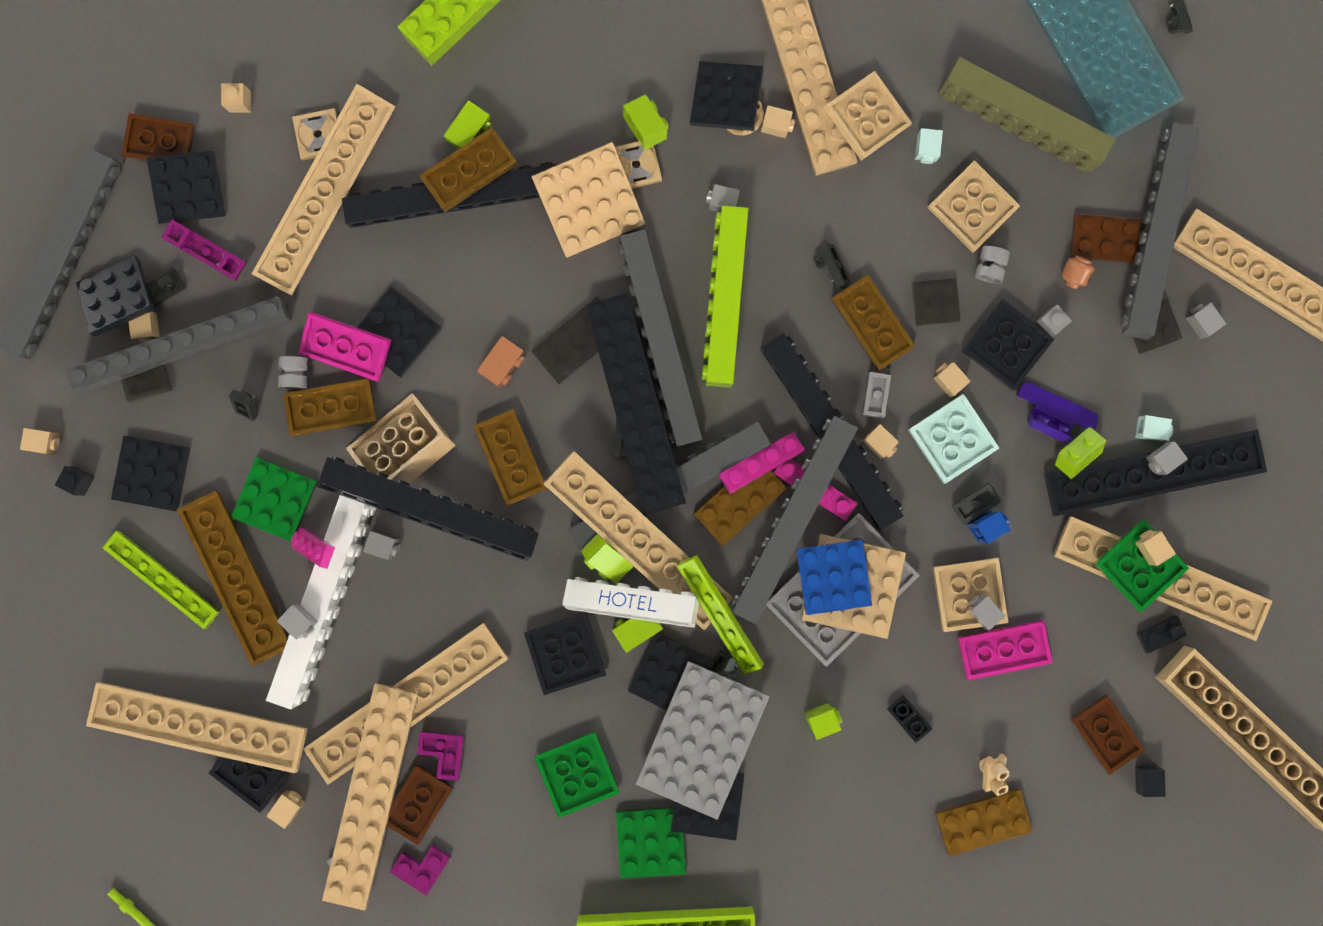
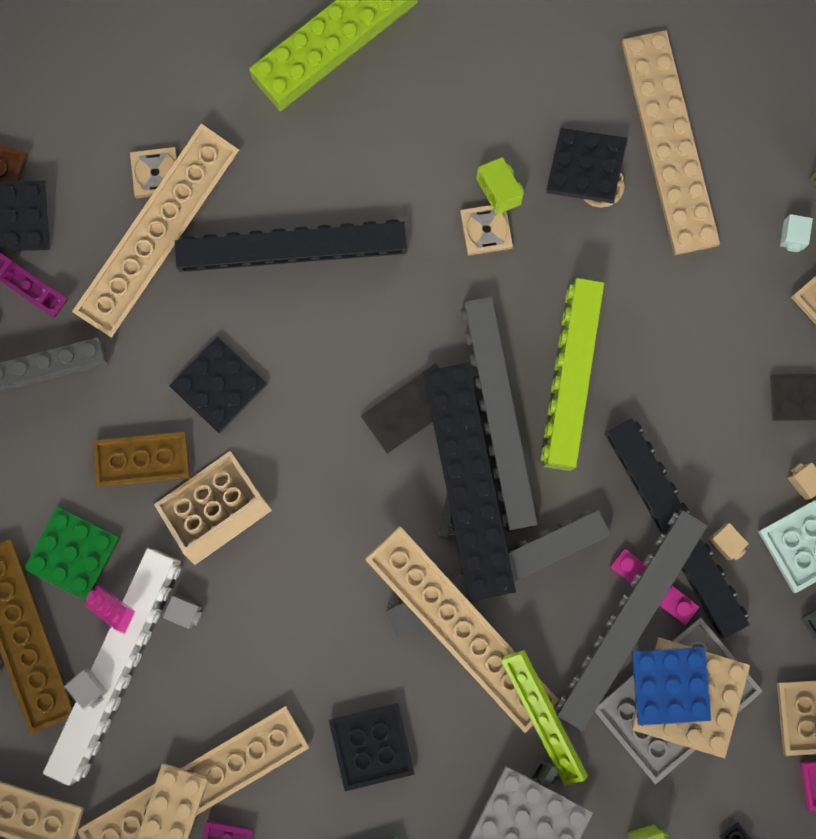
camera: 10 degrees right, 5 degrees down
(235, 97) = (73, 128): tan brick -> none
(244, 403) = (50, 448): pearl dark grey hinge -> none
(292, 372) = (105, 419): light grey wheel -> none
(344, 346) = (162, 396): dark pink tile -> none
(427, 509) = (237, 577): black brick -> none
(468, 125) = (313, 178): lime brick -> none
(468, 169) = (310, 221): pearl gold plate -> none
(501, 362) = (328, 425): nougat brick -> none
(510, 457) = (329, 528): pearl gold plate -> none
(588, 199) = (434, 261): tan plate -> none
(605, 559) = (424, 646): lime brick -> none
(631, 602) = (449, 696): white brick -> none
(634, 632) = (451, 725): lime brick -> none
(663, 668) = (477, 773): black plate -> none
(722, 196) = (573, 269): light grey brick -> none
(729, 513) = (572, 594): pearl gold plate -> none
(761, 462) = (599, 555): dark pink plate -> none
(777, 122) = (638, 196): tan brick -> none
(830, 258) = (684, 341): pearl dark grey hinge -> none
(867, 115) = (734, 197): tan plate -> none
(873, 322) = (727, 414): pearl gold plate -> none
(876, 395) = (726, 491): light grey plate -> none

